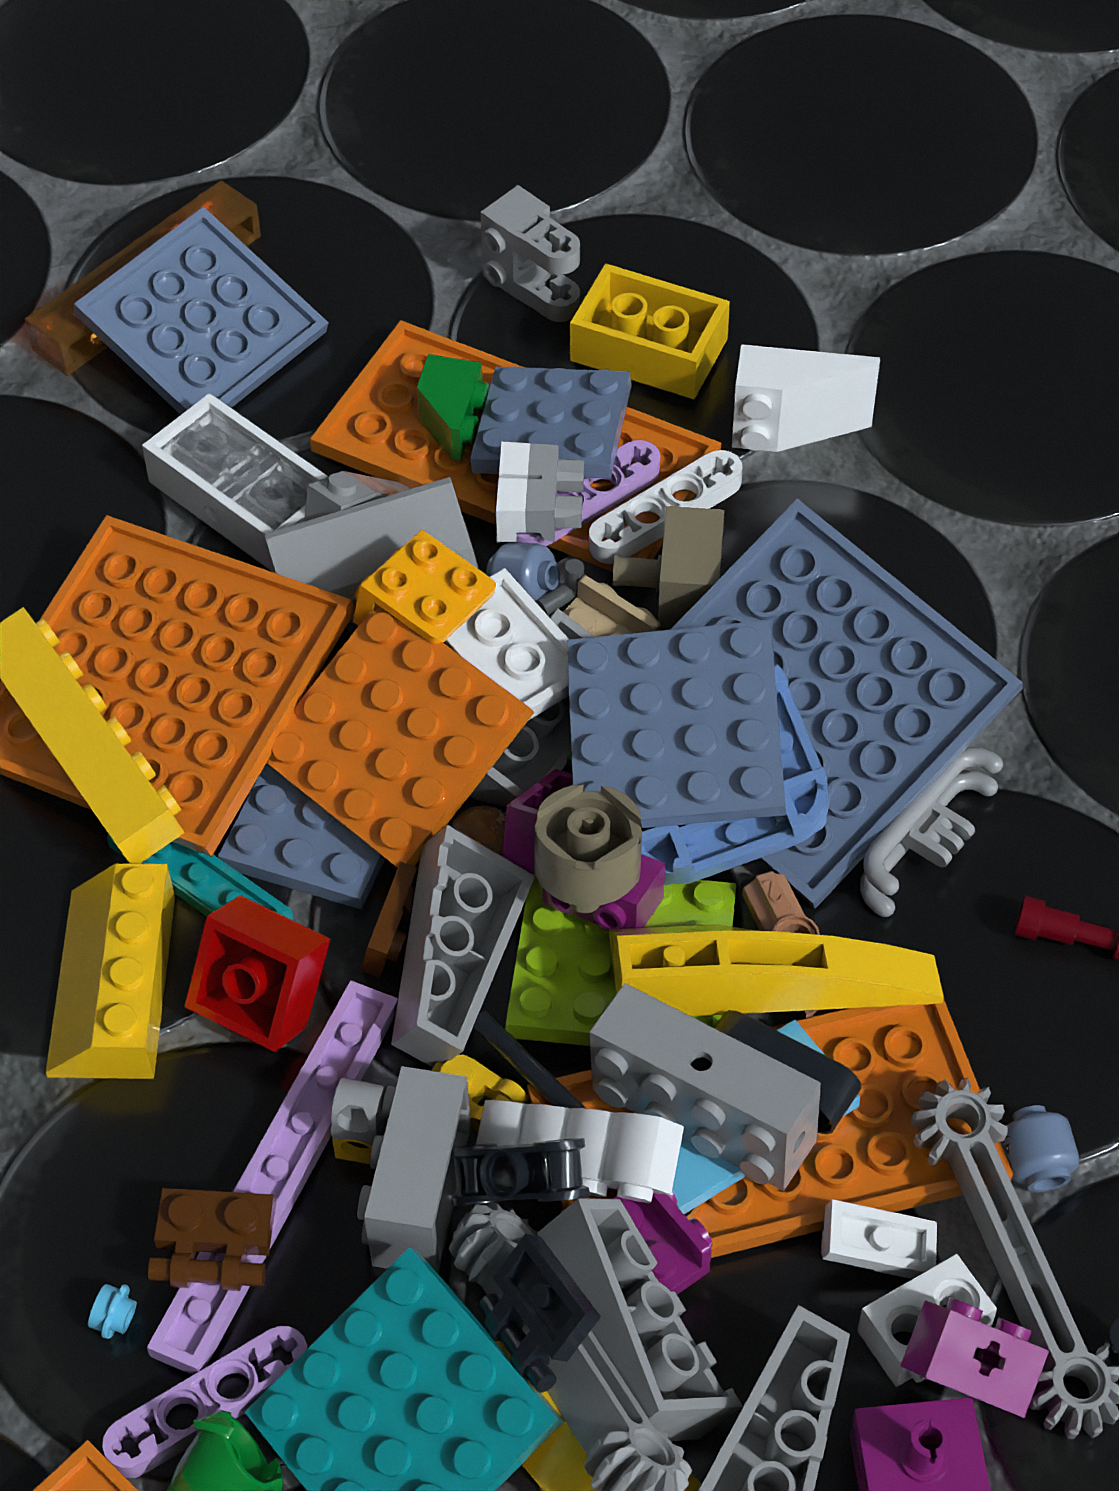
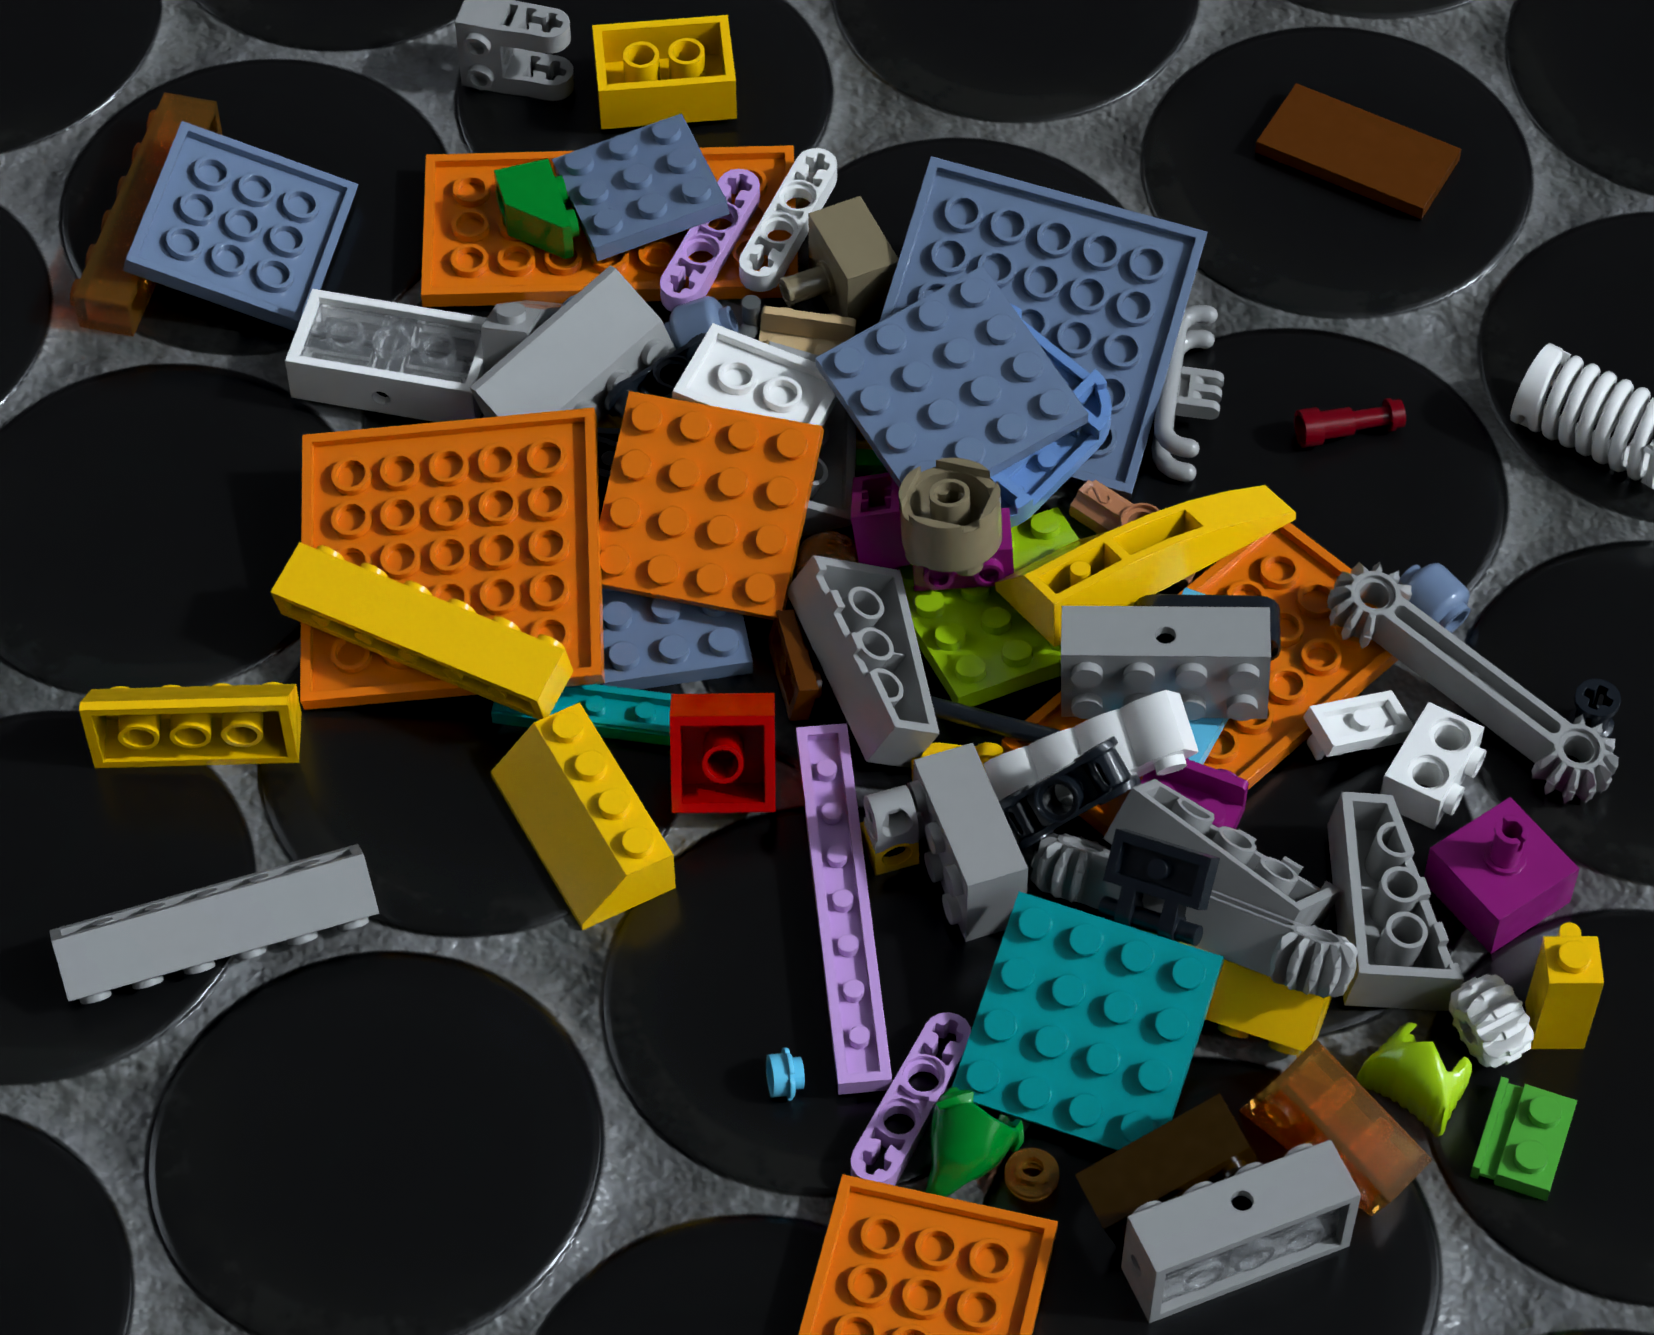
camera: 30 degrees left, 0 degrees up
(214, 1224) = (828, 963): reddish brown plate -> none
(425, 588) = (659, 367): light orange bracket -> none
(529, 491) = (674, 251): light grey hips -> none
(800, 397) = (838, 76): white slope -> none
(945, 1347) = (1492, 766): magenta brick -> none

